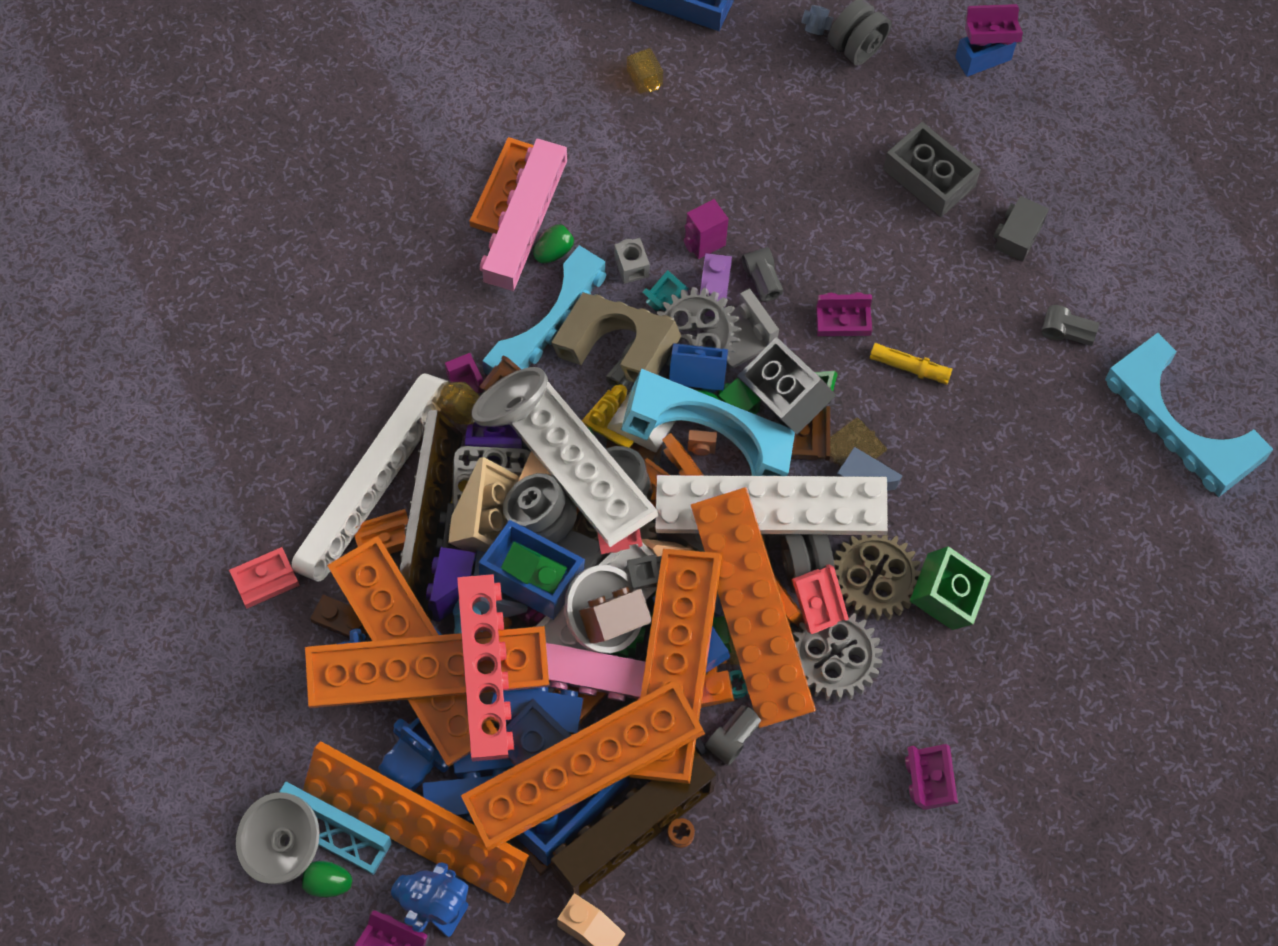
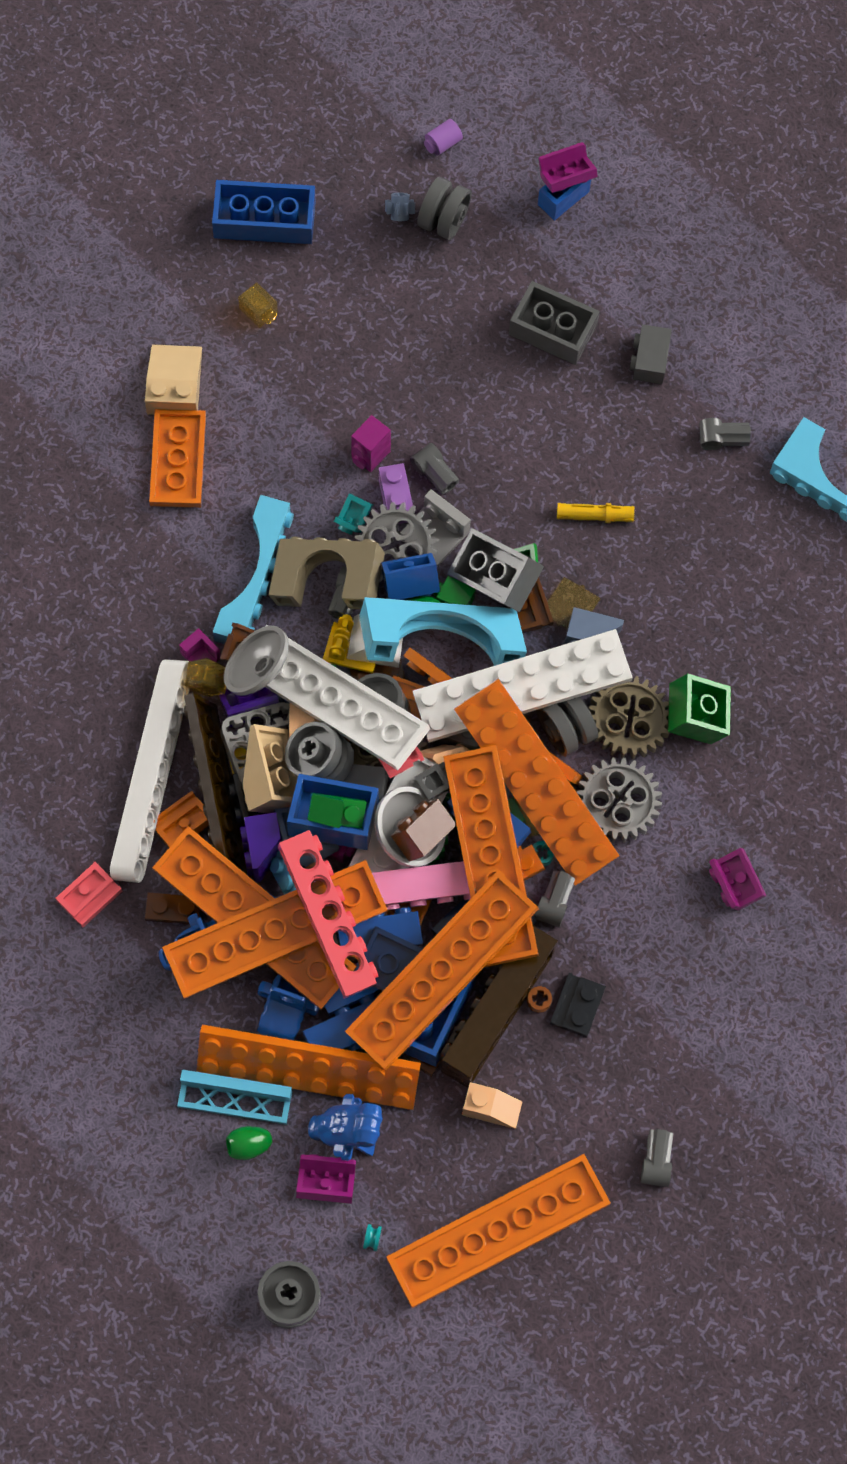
camera: 20 degrees left, 5 degrees up
(264, 833) = (178, 1124): light grey dish -> none
(524, 214) = (199, 481): bright pink brick -> none
(536, 113) = (173, 378): none -> tan slope
(553, 244) = (234, 500): green animal -> none
(631, 269) = (315, 502): light grey brick -> none
(702, 442) = (436, 645): nougat plate -> none
(719, 852) = (578, 1005): none -> black plate
(820, 599) = (591, 755): coral plate -> none
(844, 314) = (521, 486): magenta bracket -> none

